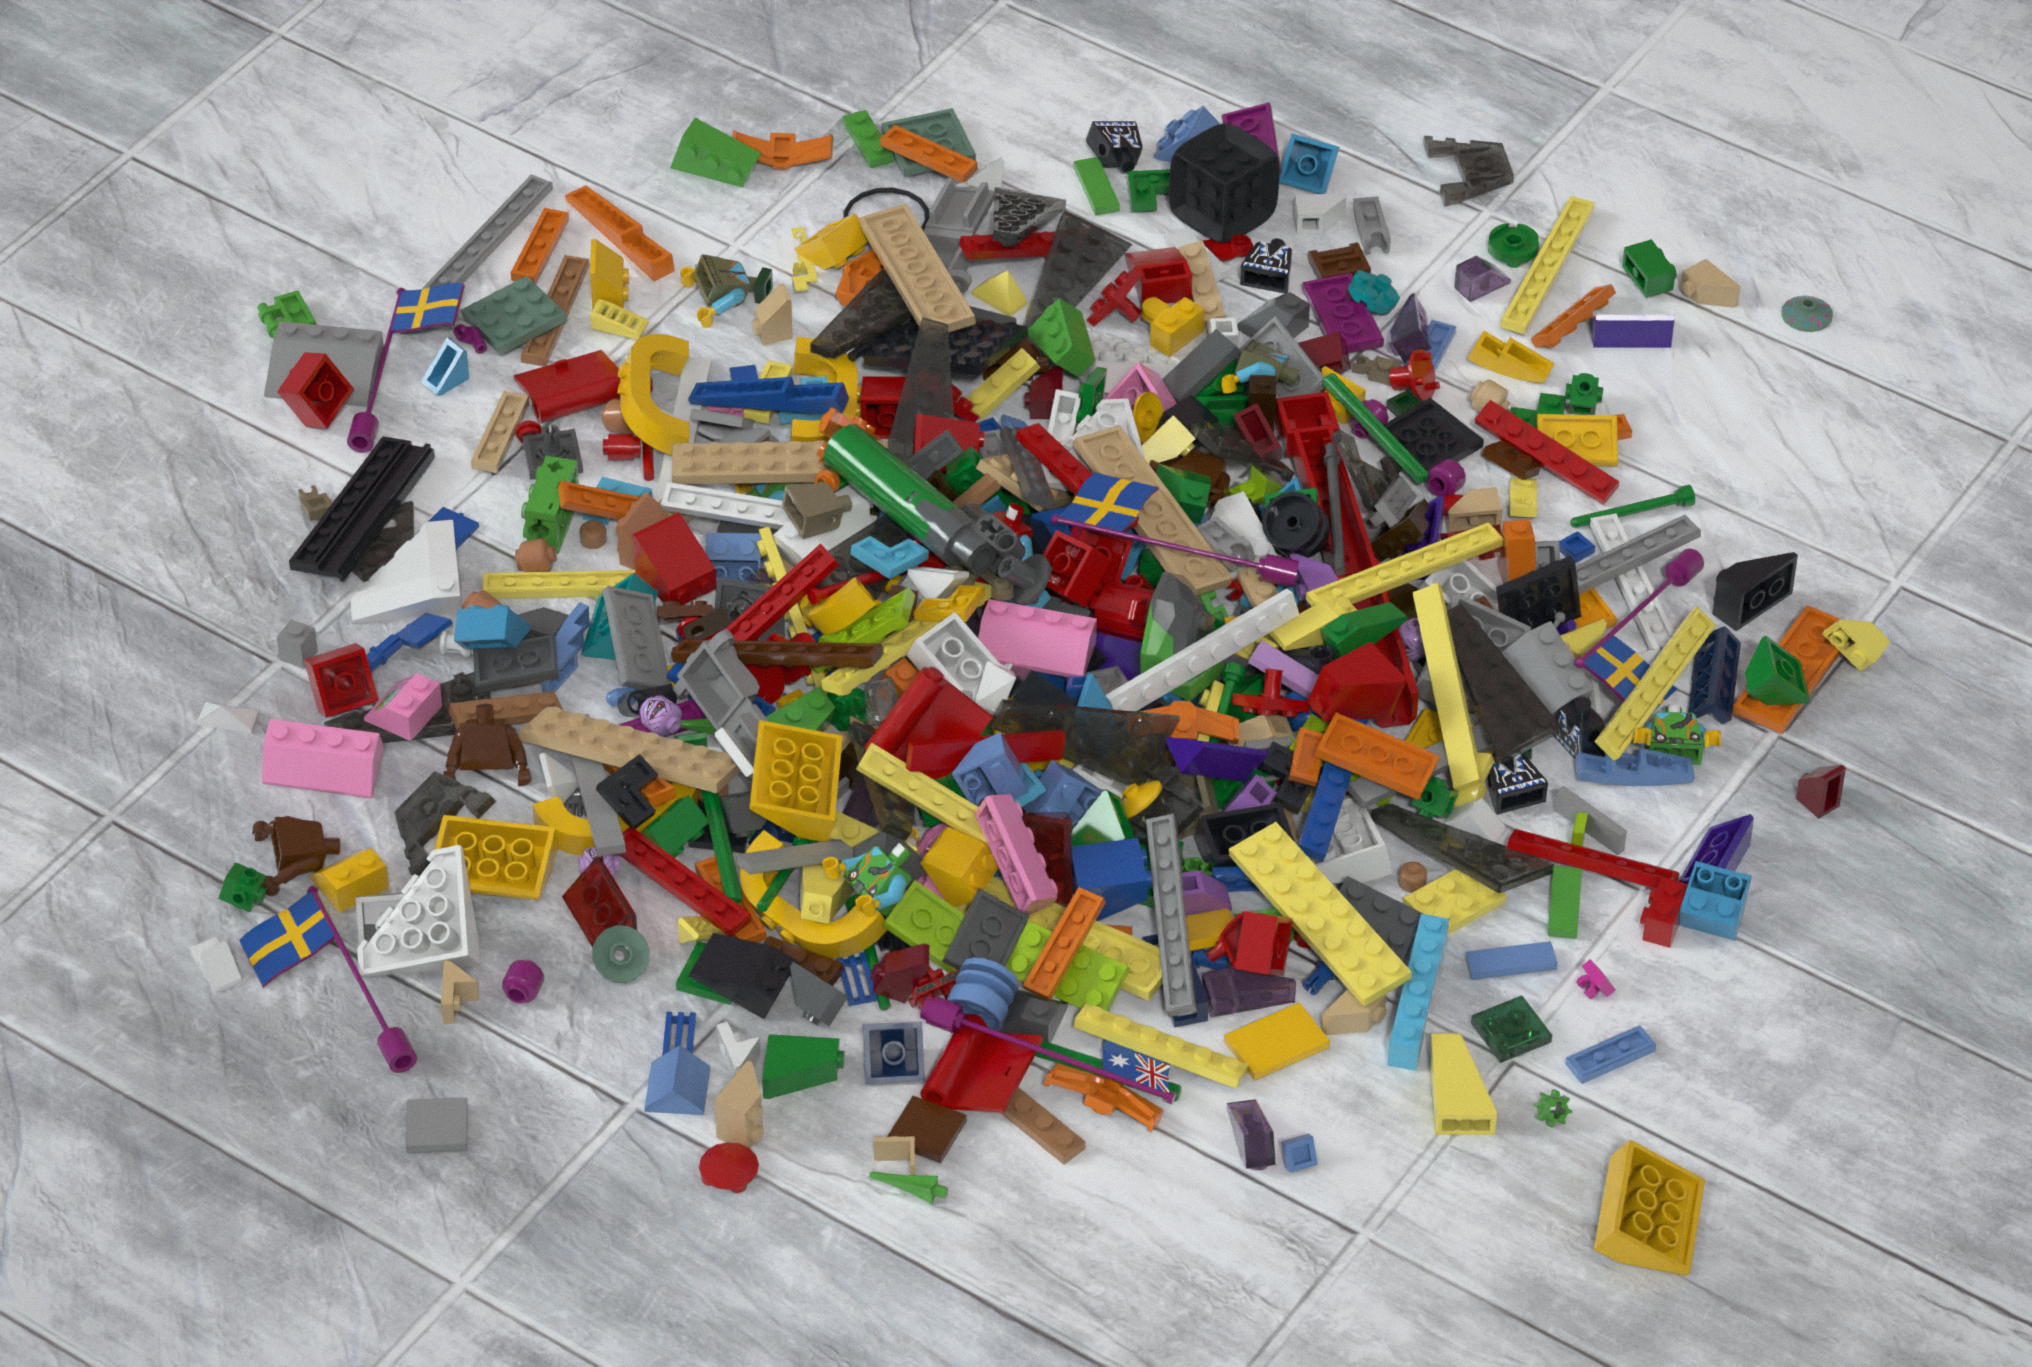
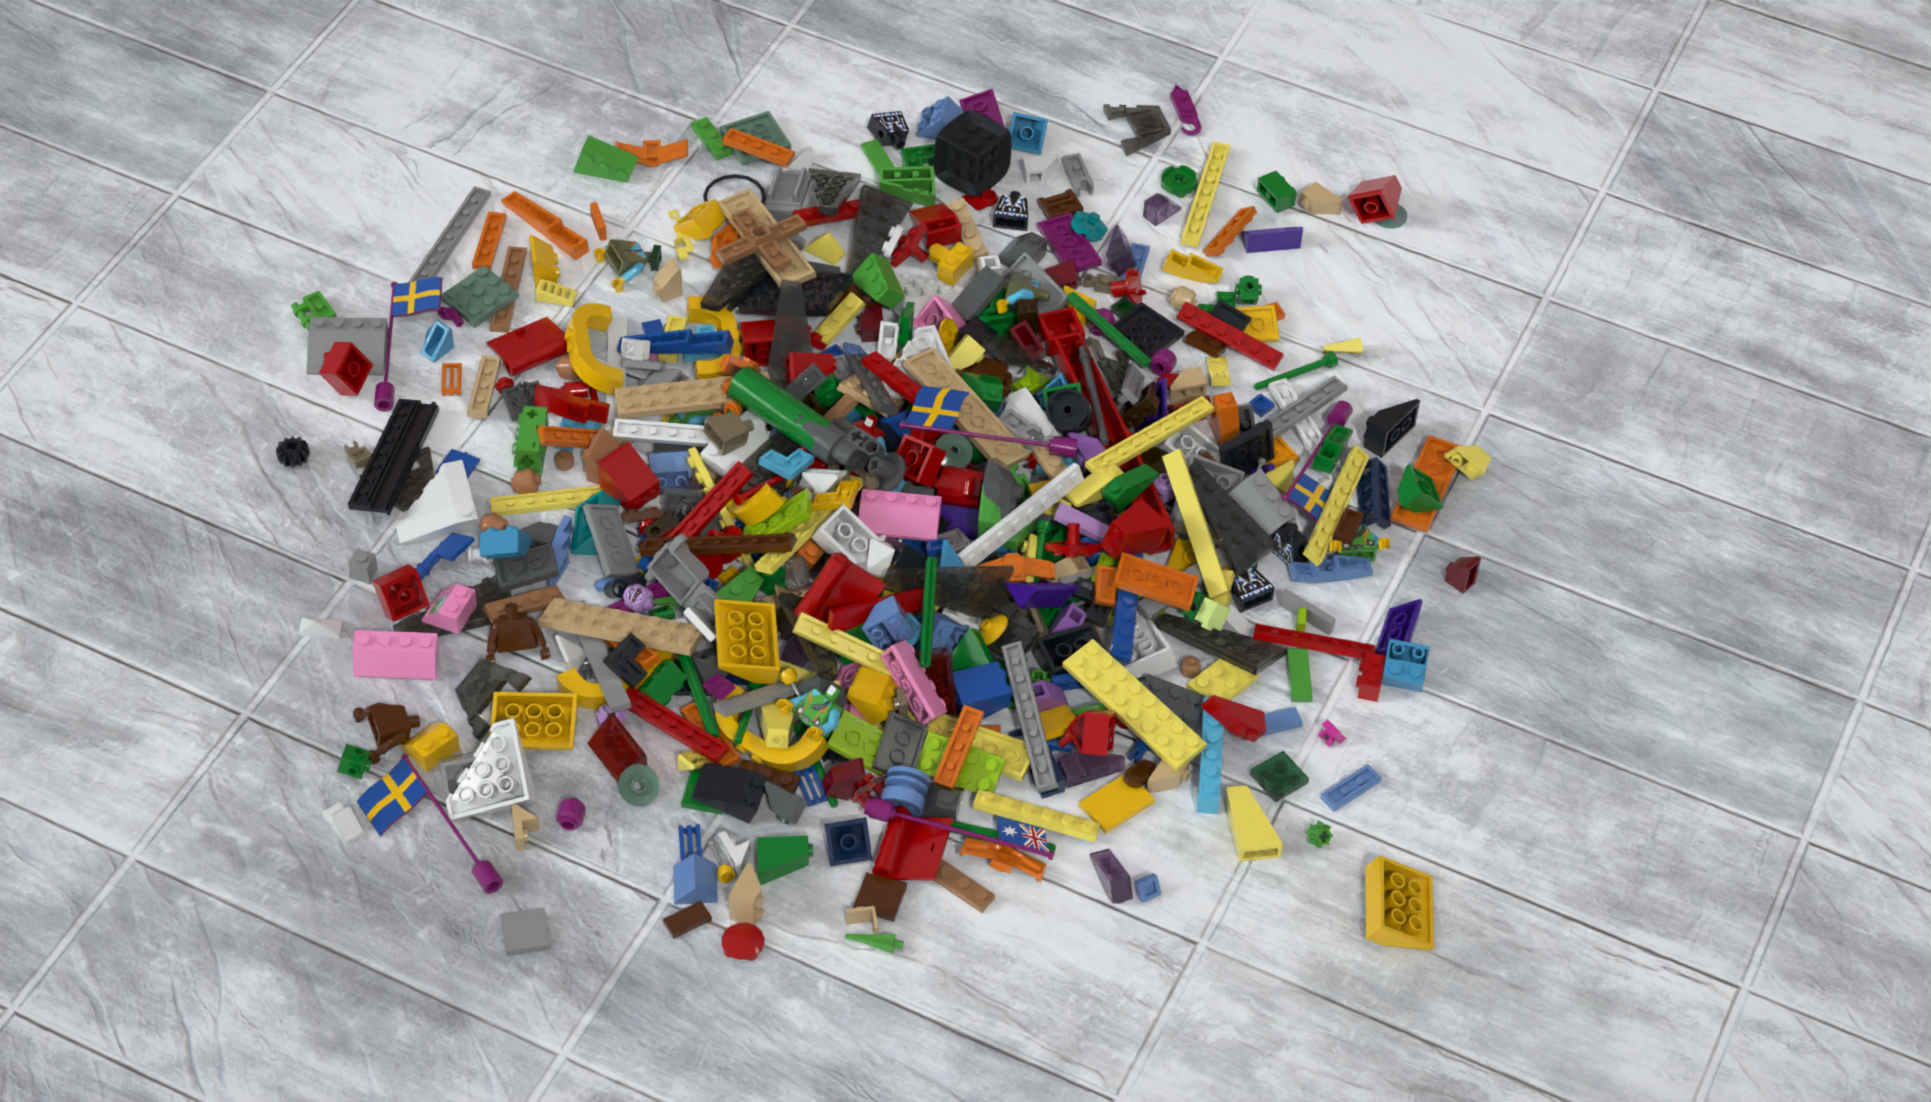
camera: 10 degrees left, 5 degrees up
(228, 491) = (292, 452): none -> black gear
(457, 432) = (451, 390): none -> orange tile
(614, 466) = (569, 406): none -> red slope
(658, 1131) = (687, 919): none -> reddish brown tile
(692, 232) = (598, 221): none -> orange tile
(713, 398) = (635, 349): none -> white slope
(718, 1075) = (724, 872): none -> yellow hinge
(748, 836) = (718, 686): none -> magenta tile
(847, 834) = (789, 678): none -> yellow hinge
(907, 268) = (761, 239): none -> medium nougat piece
(994, 878) = (900, 702): none -> dark tan plate
(1048, 762) = (928, 612): none -> green axle
(1098, 282) = (894, 233): none -> white plate
(1118, 570) = (962, 456): none -> sand green dish
(1130, 216) = (909, 183): none -> bright green wedge
(1310, 1007) = (1139, 773): none -> reddish brown tile
(1452, 808) = (1212, 614): none -> yellowish green brick
(1460, 943) = (1238, 718): none -> red slope
(1540, 152) = (1185, 110): none -> magenta plate
(1552, 424) = (1230, 315): none -> black tile
(1663, 610) = (1332, 448): none -> green slope
(1667, 712) = (1348, 526): none -> reddish brown tile
(1713, 480) = (1351, 346): none -> light yellow slope
(1788, 288) = (1376, 199): none -> red slope

